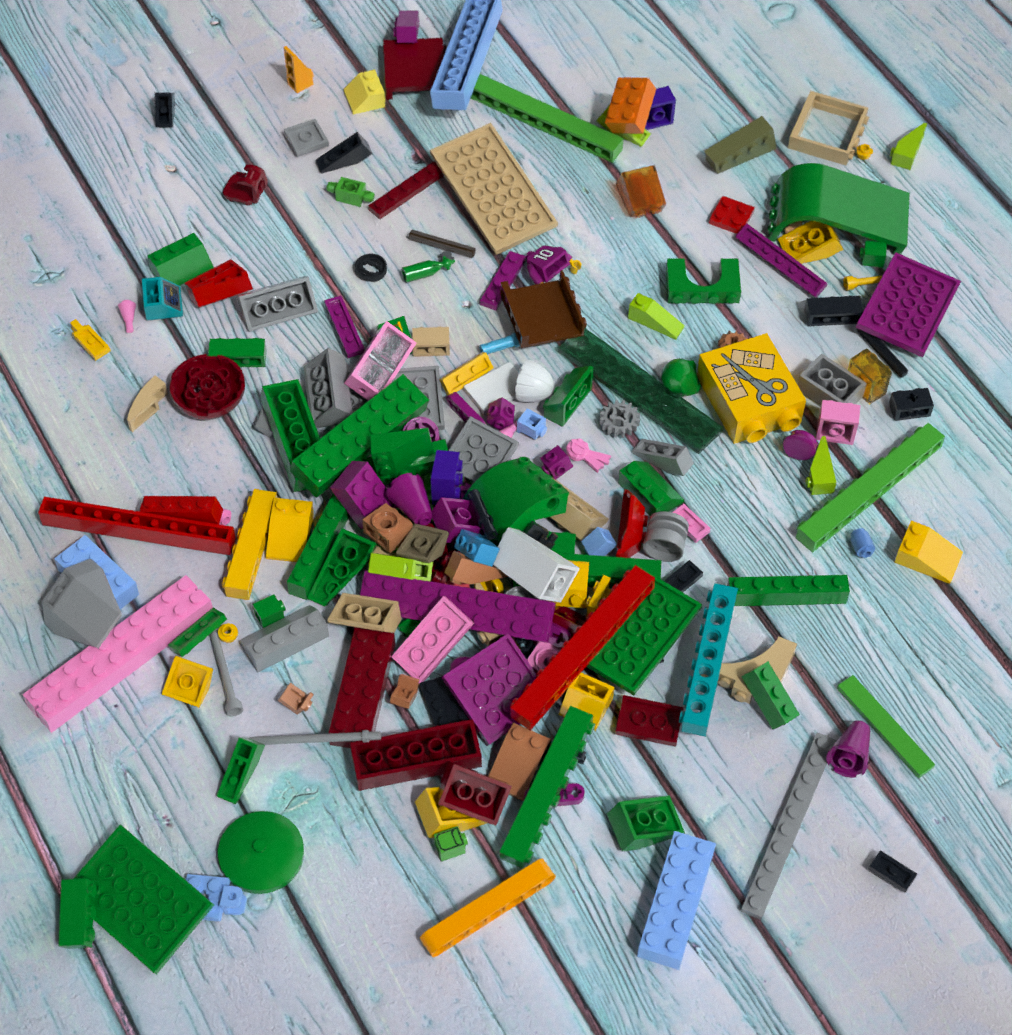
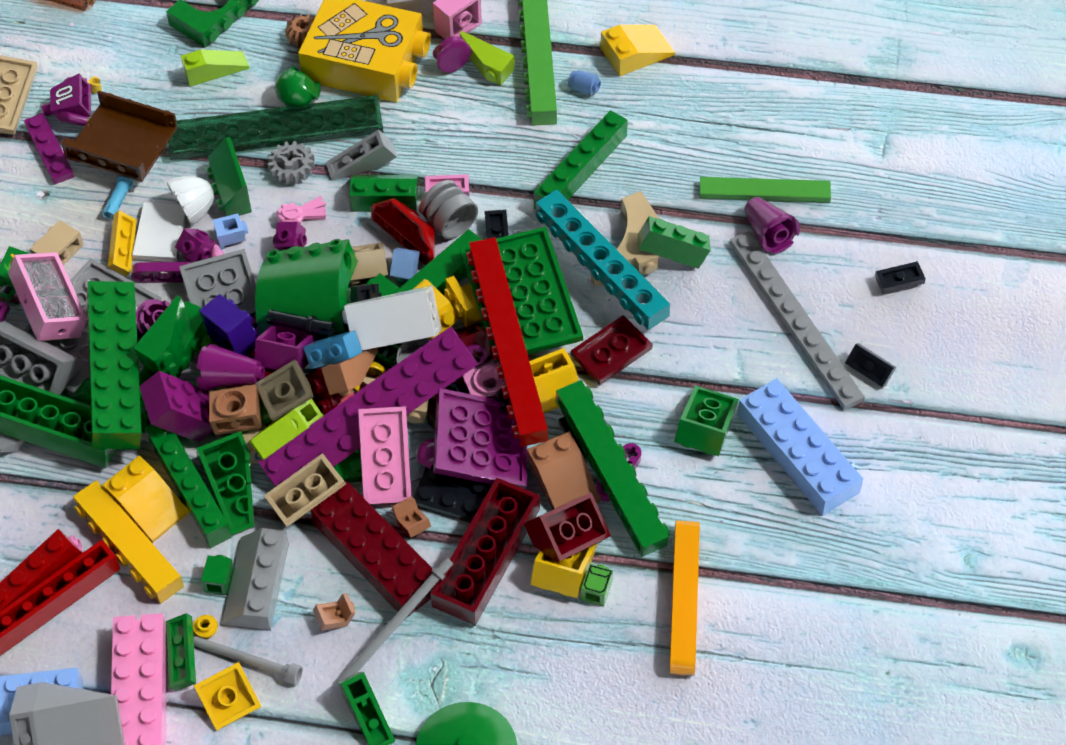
camera: 50 degrees left, 0 degrees up
(792, 902) = (870, 365): none -> black plate

